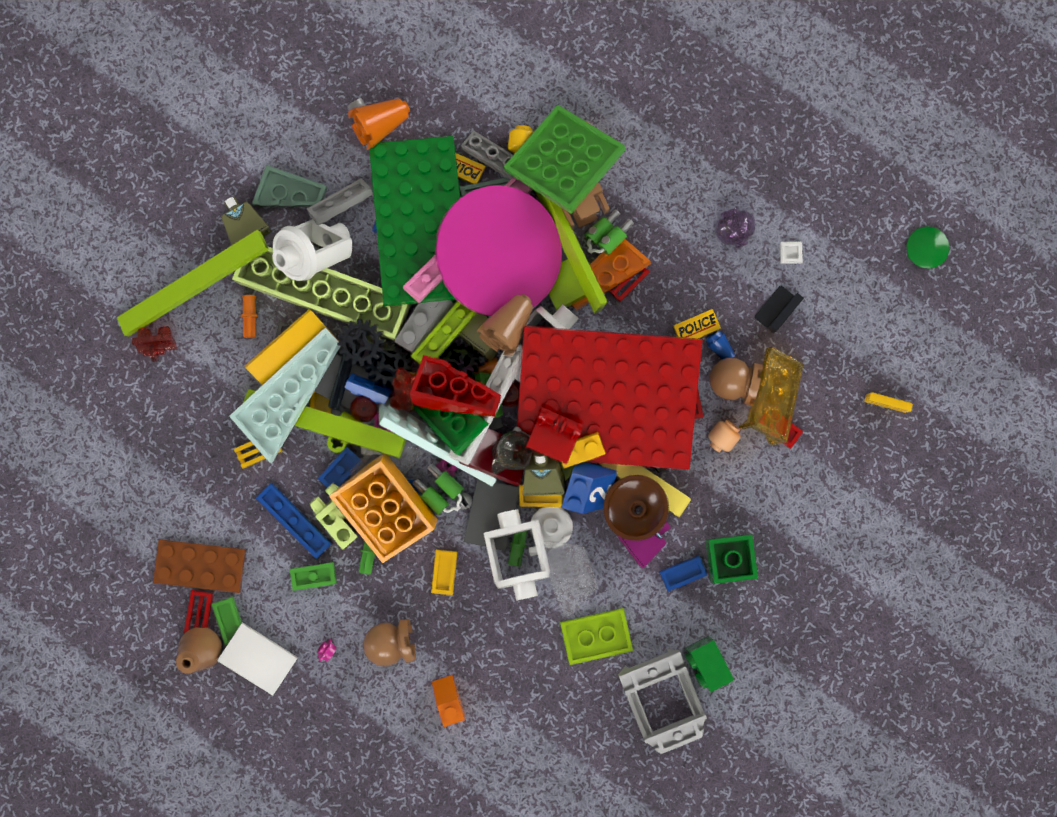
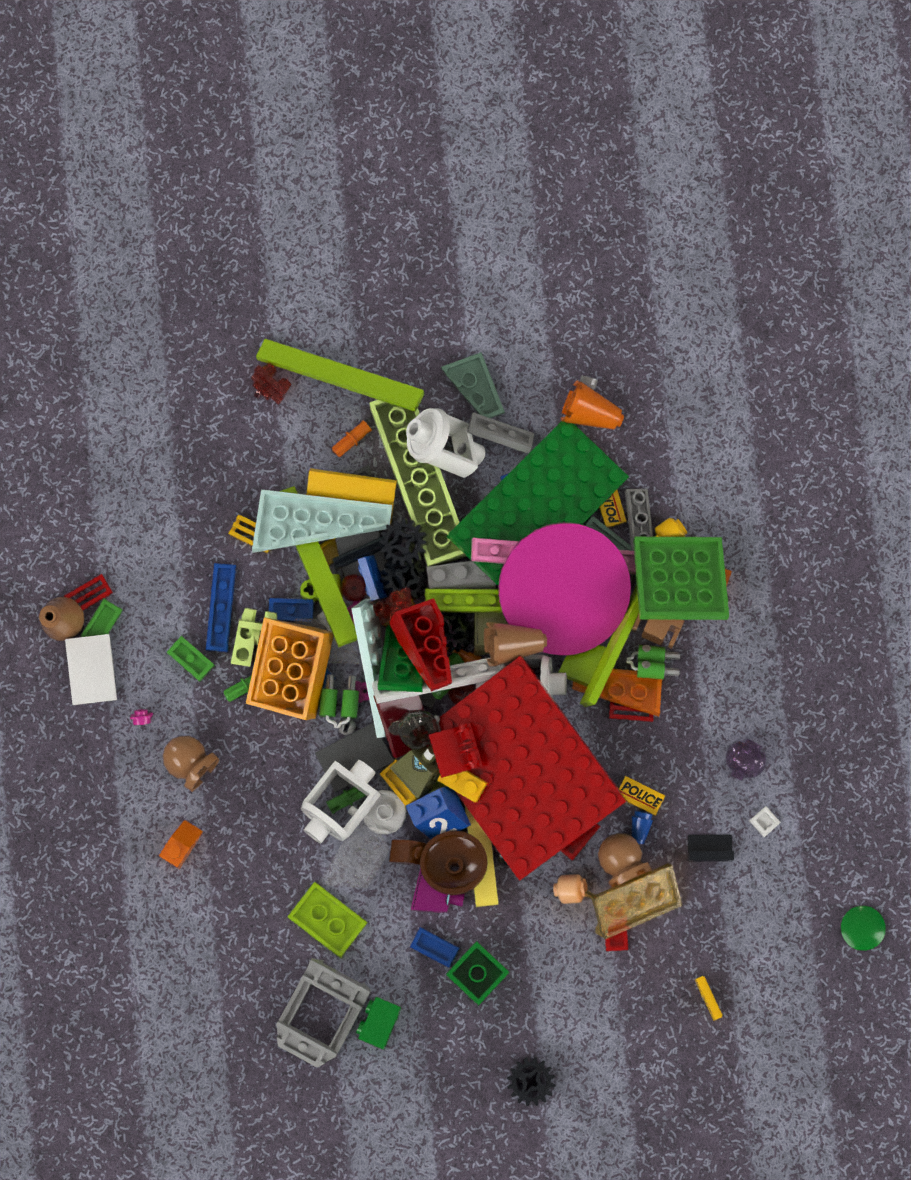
camera: 50 degrees right, 5 degrees down
(199, 566) = (125, 564): dark orange plate -> none
(242, 220) = (421, 371): olive torso -> none
(444, 572) = (278, 758): yellow tile -> none
(596, 535) = (406, 852): none -> reddish brown brick
(840, 576) = (522, 1076): none -> black gear

